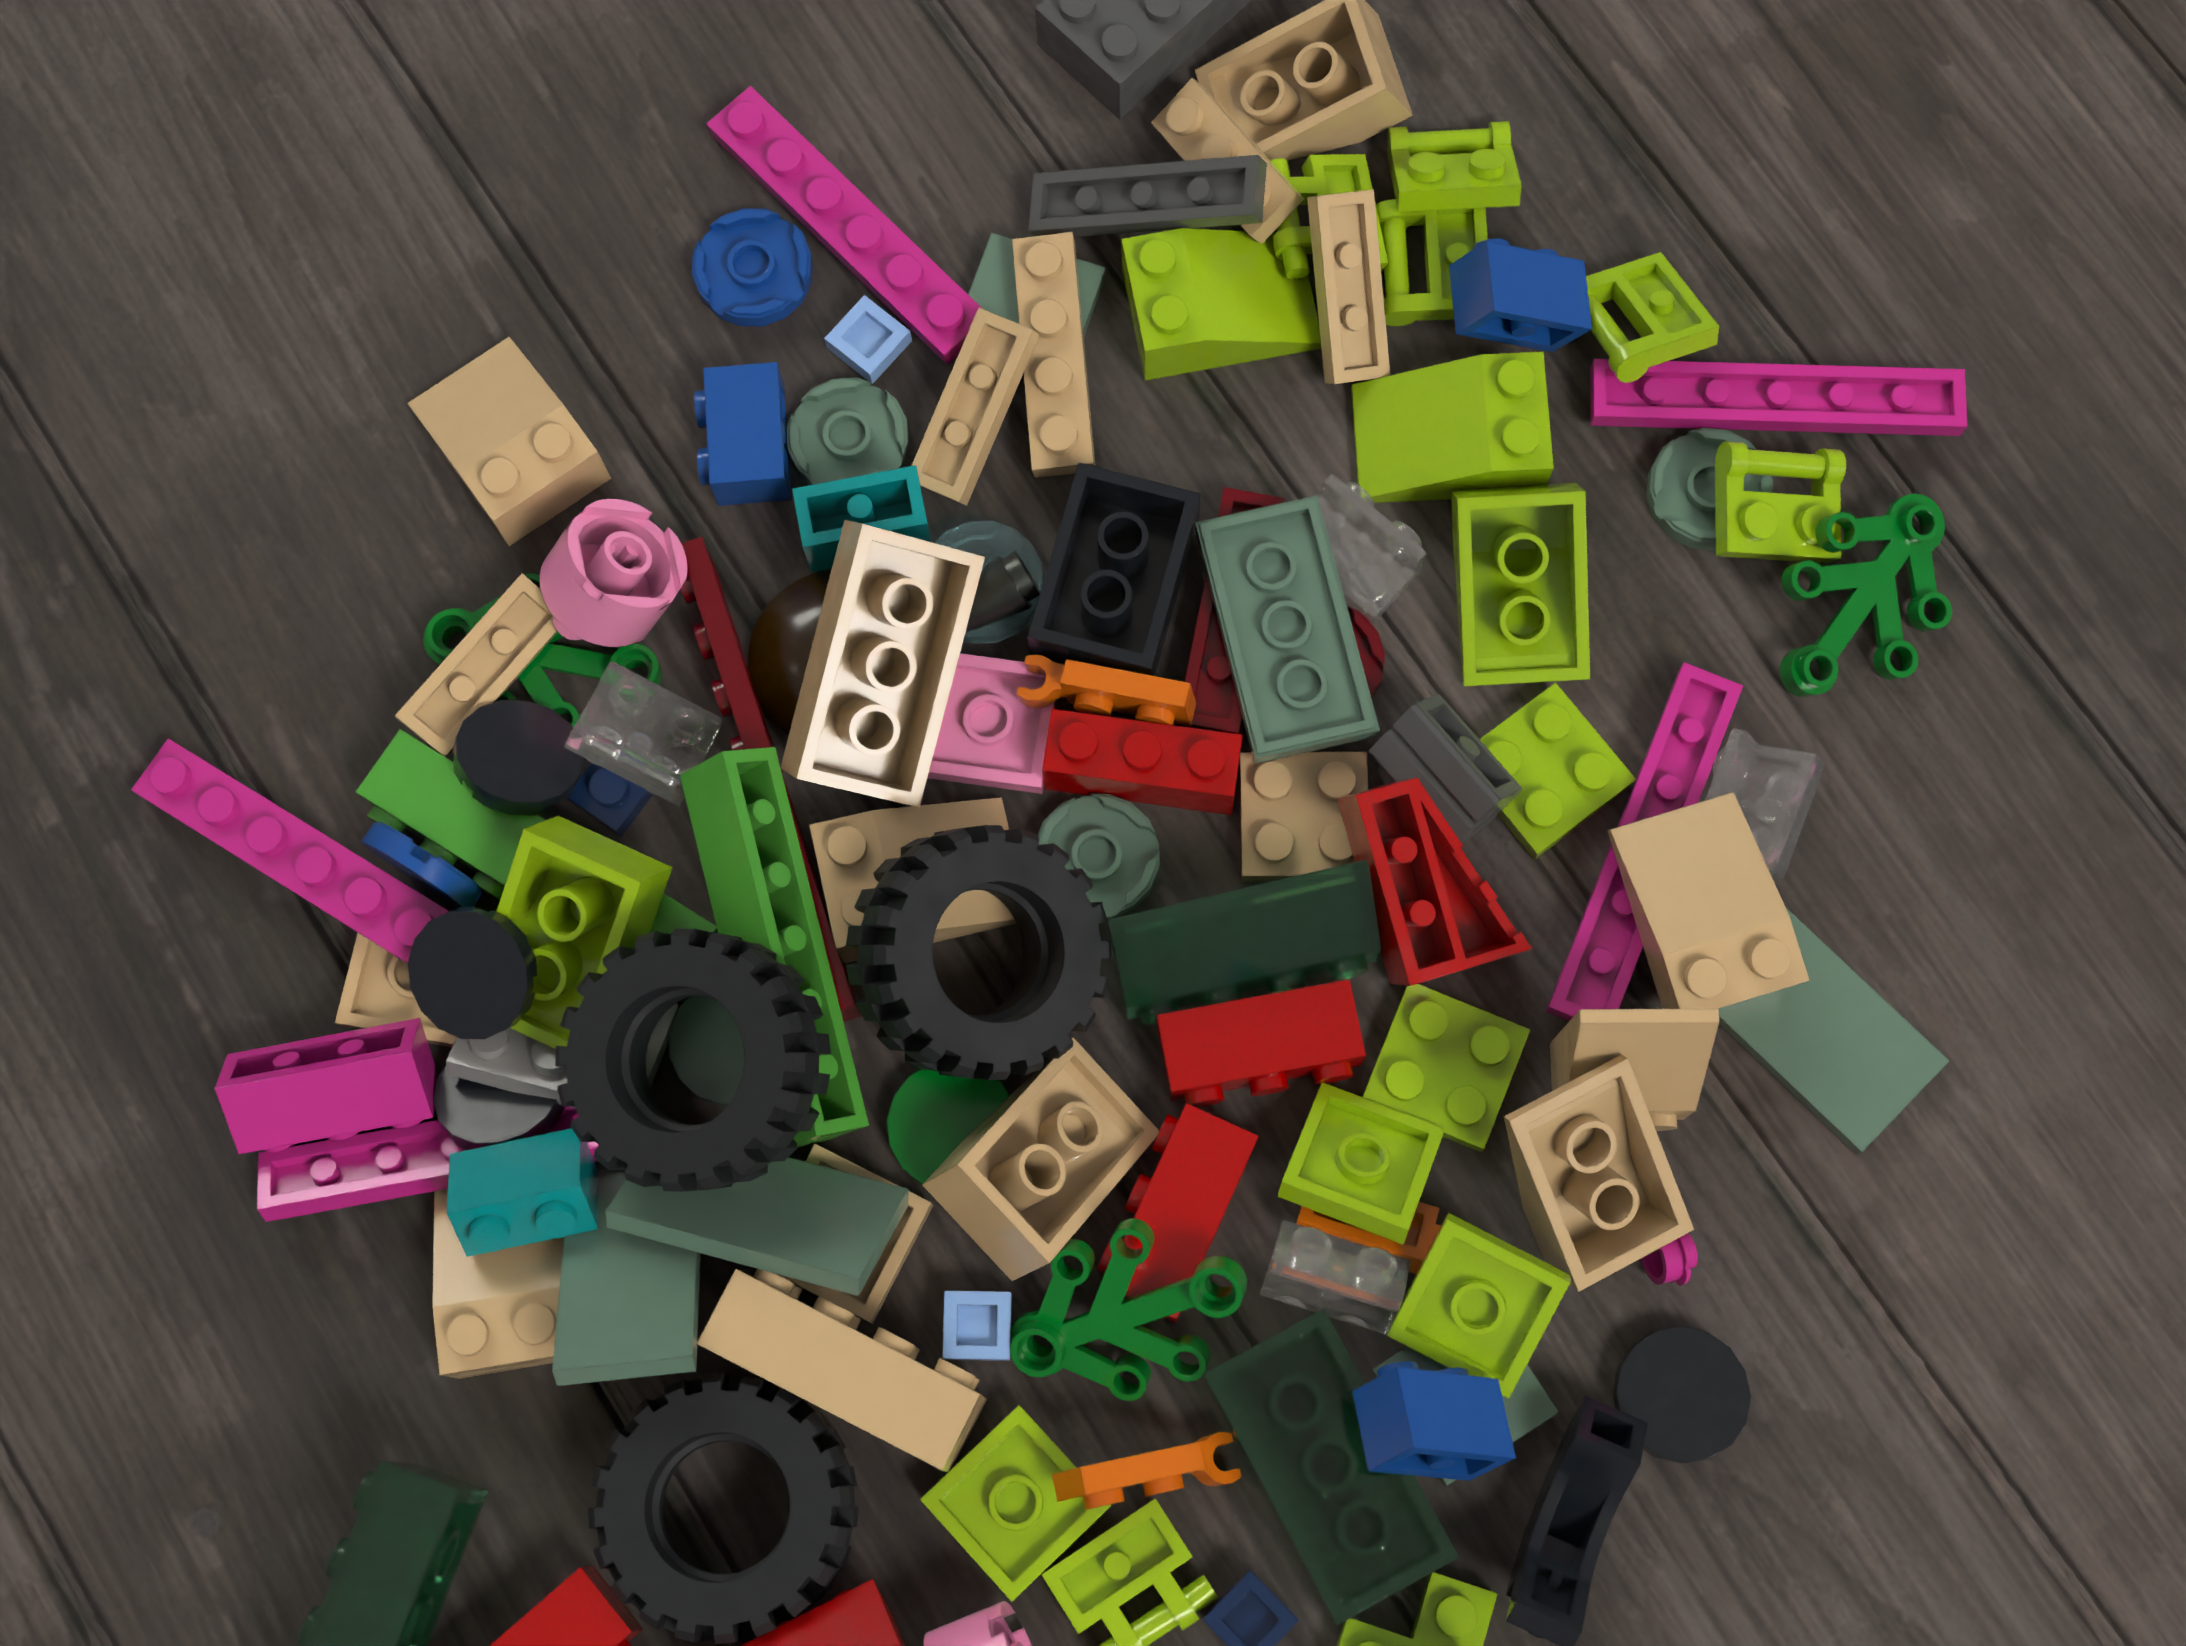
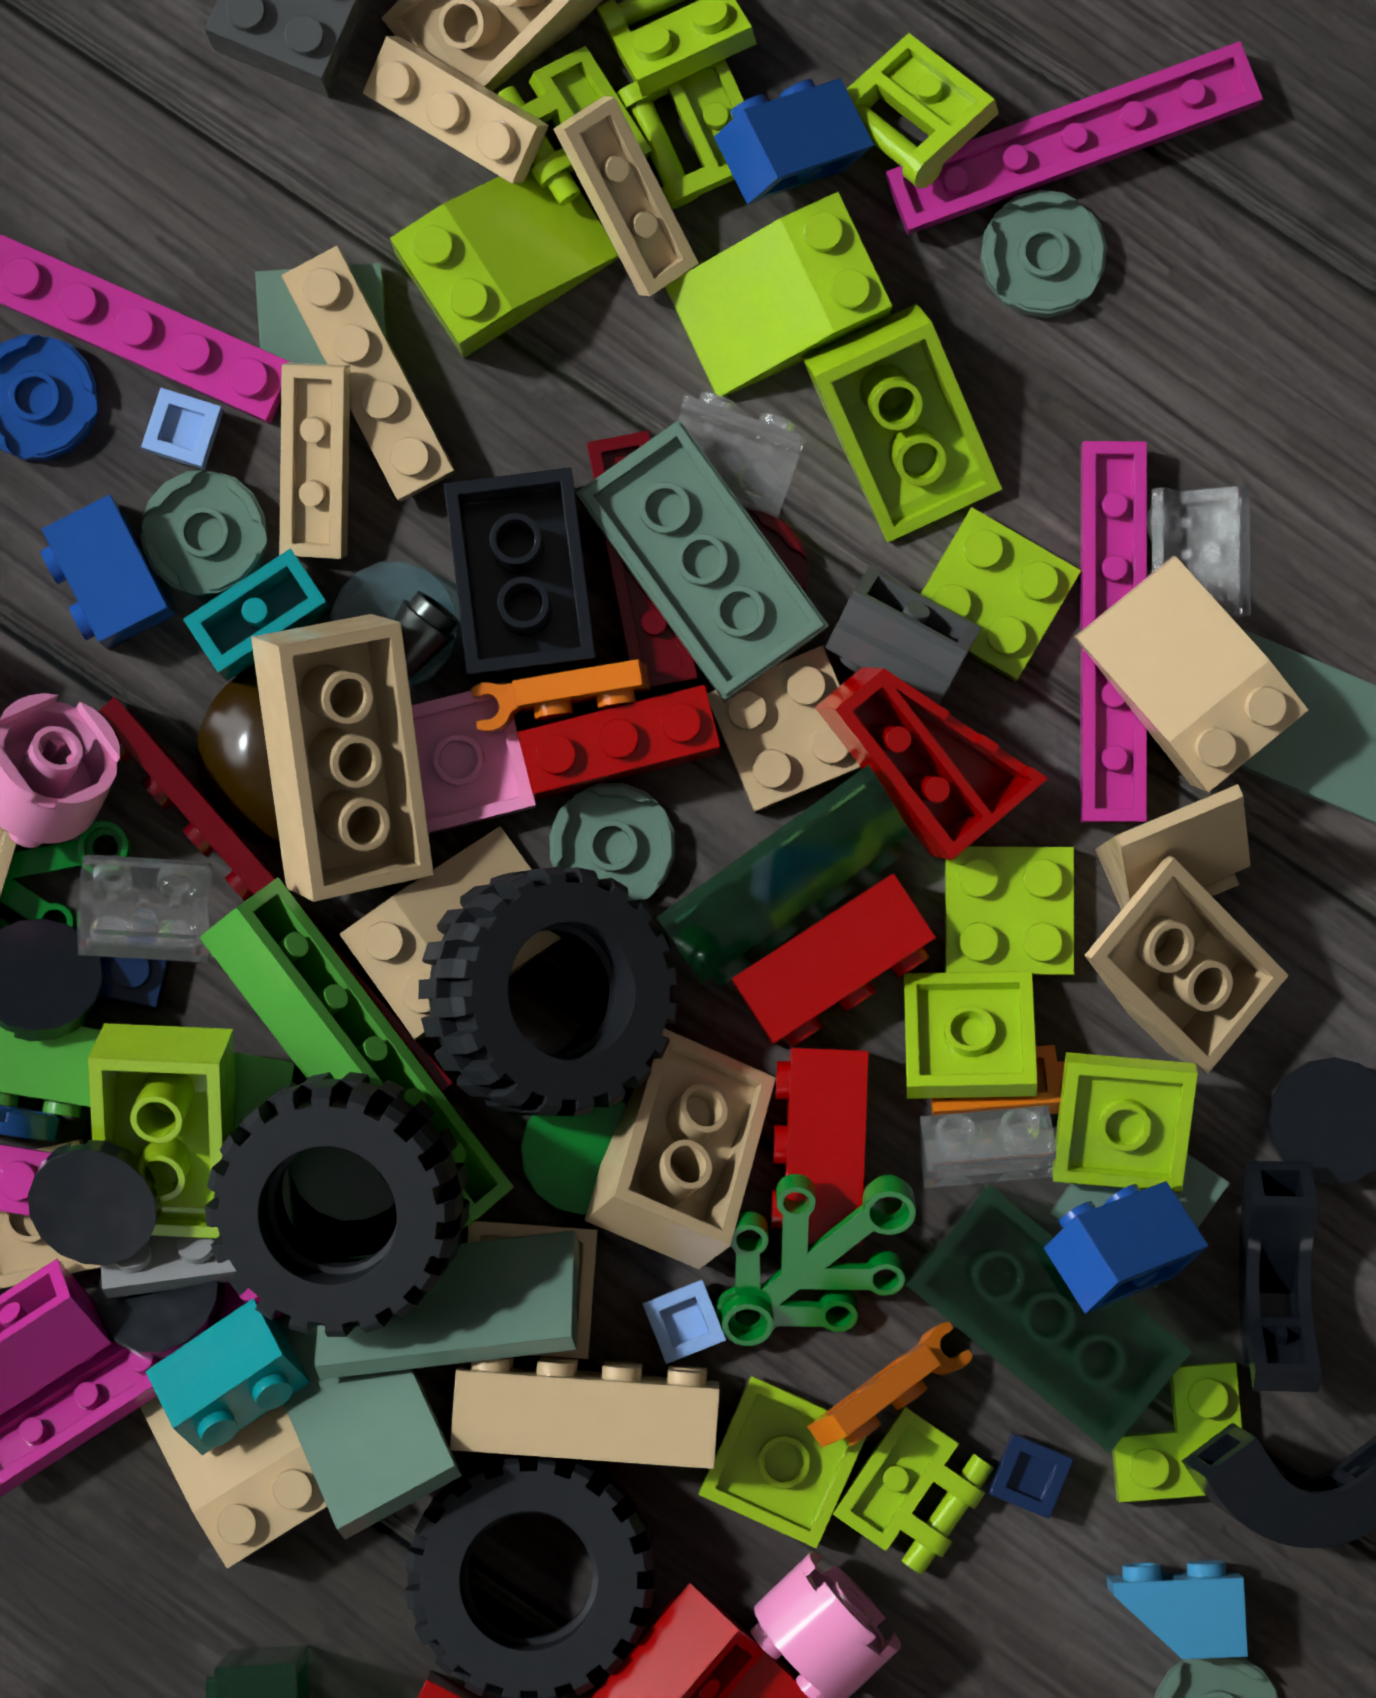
camera: 25 degrees left, 10 degrees up
(1149, 197) = (396, 183): dark grey plate -> none
(1672, 1261) = (1281, 1008): dark pink plate -> none
(1775, 523) = (1123, 266): lime plate -> none
(1872, 590) = (1231, 296): green plant -> none

